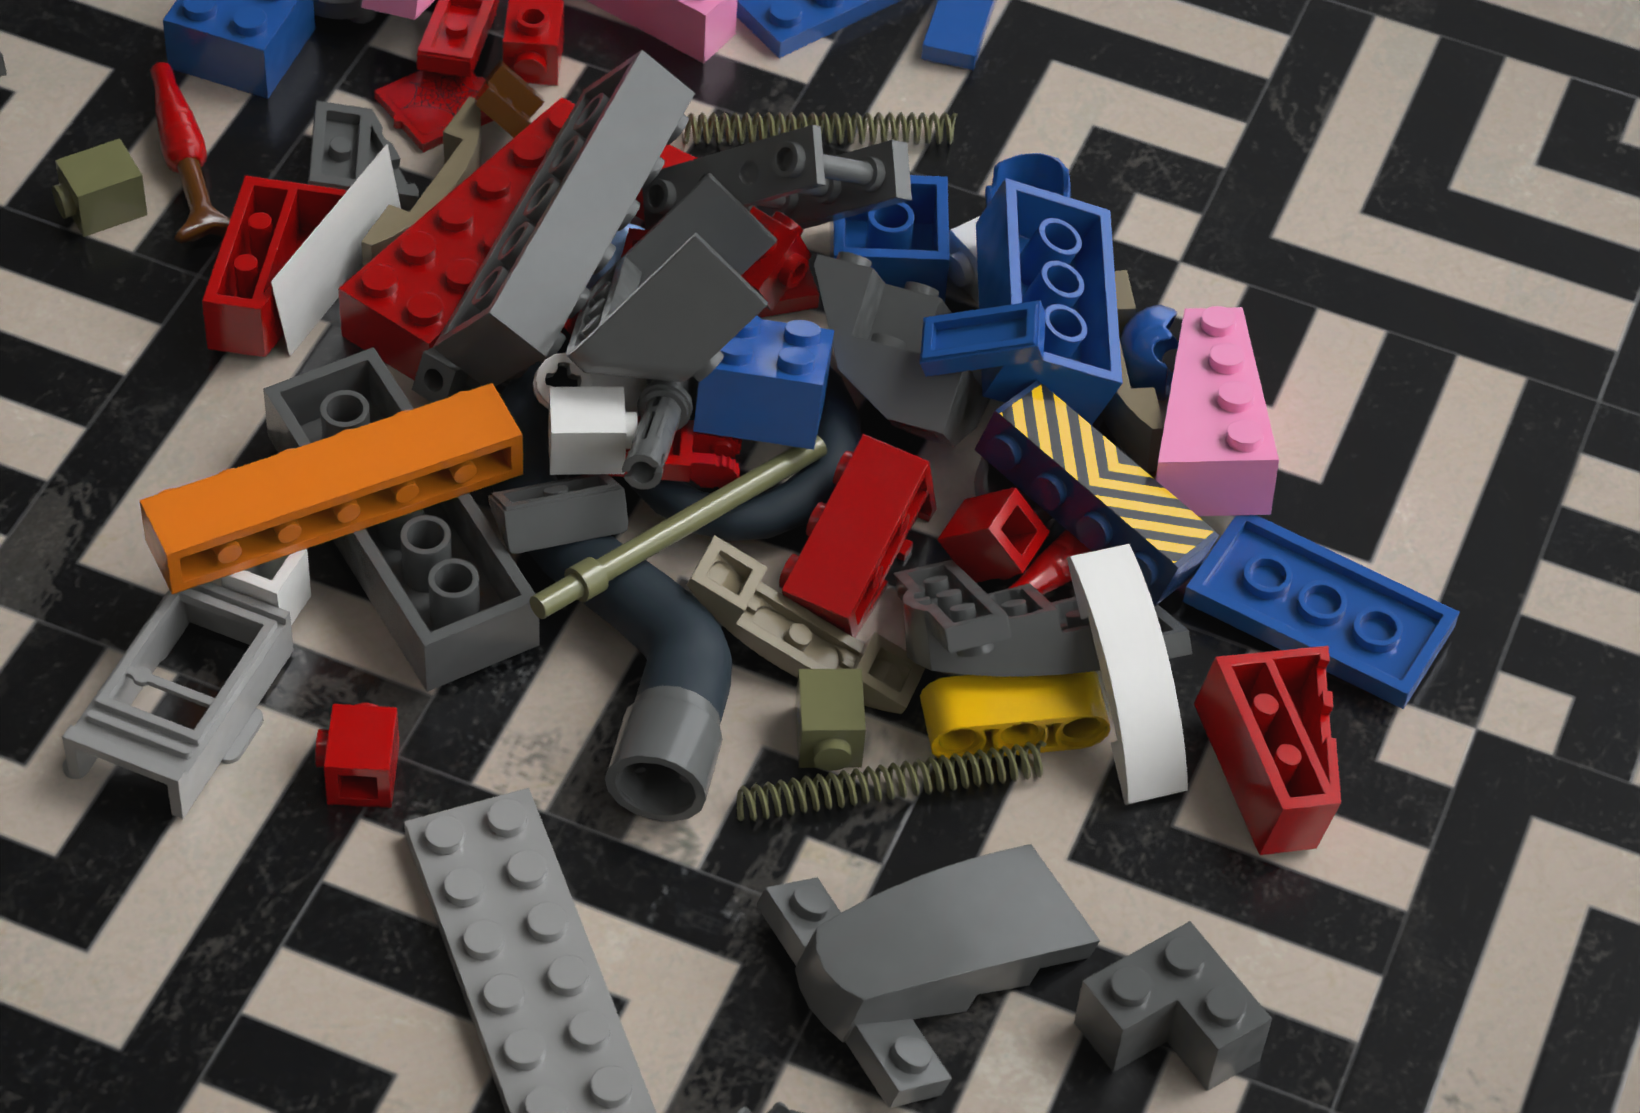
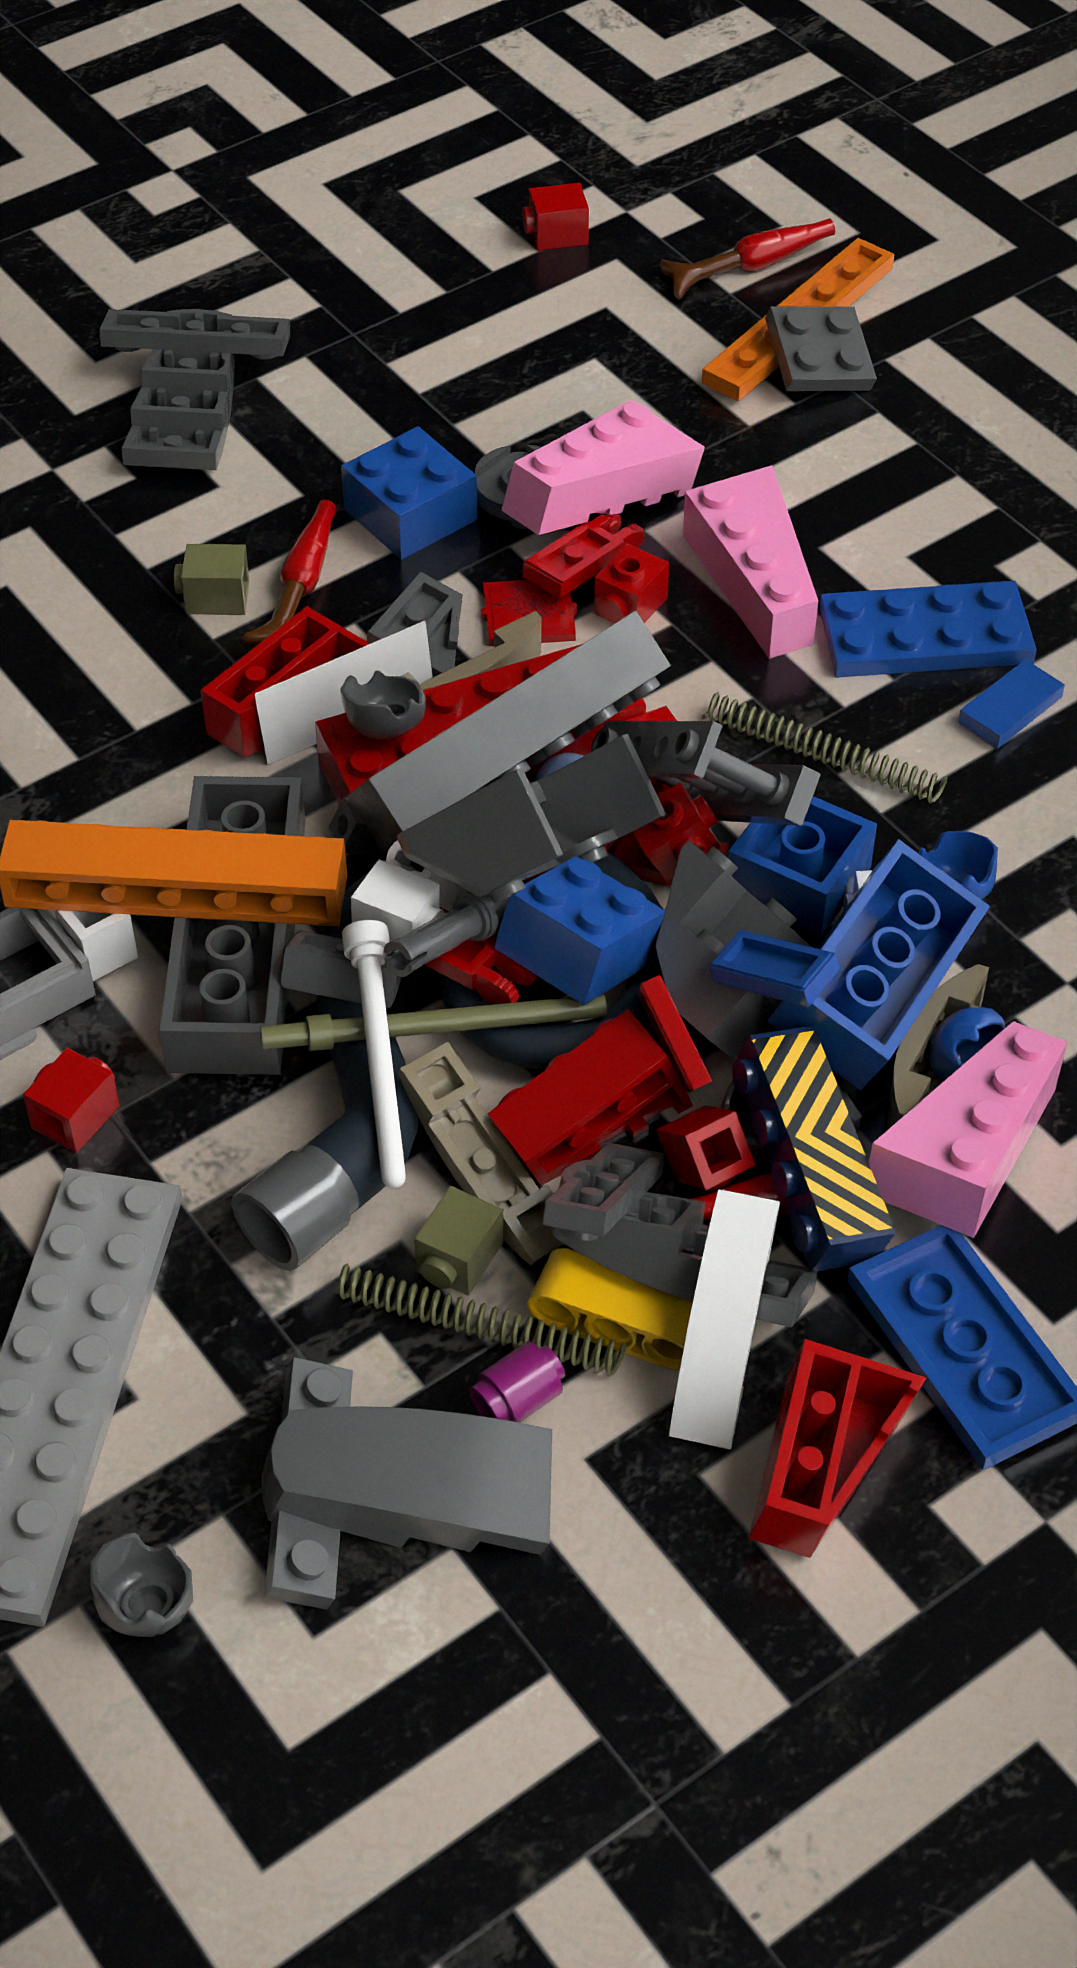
camera: 35 degrees right, 0 degrees up
(417, 242) = (383, 706): none -> dark grey hair
(508, 99) = (567, 623): reddish brown slope -> none
(591, 476) = (364, 946): none -> white piece
(898, 423) = (673, 1034): none -> red tile
(975, 817) = (518, 1383): none -> magenta brick
(1175, 995) = (562, 1620): dark grey brick -> none

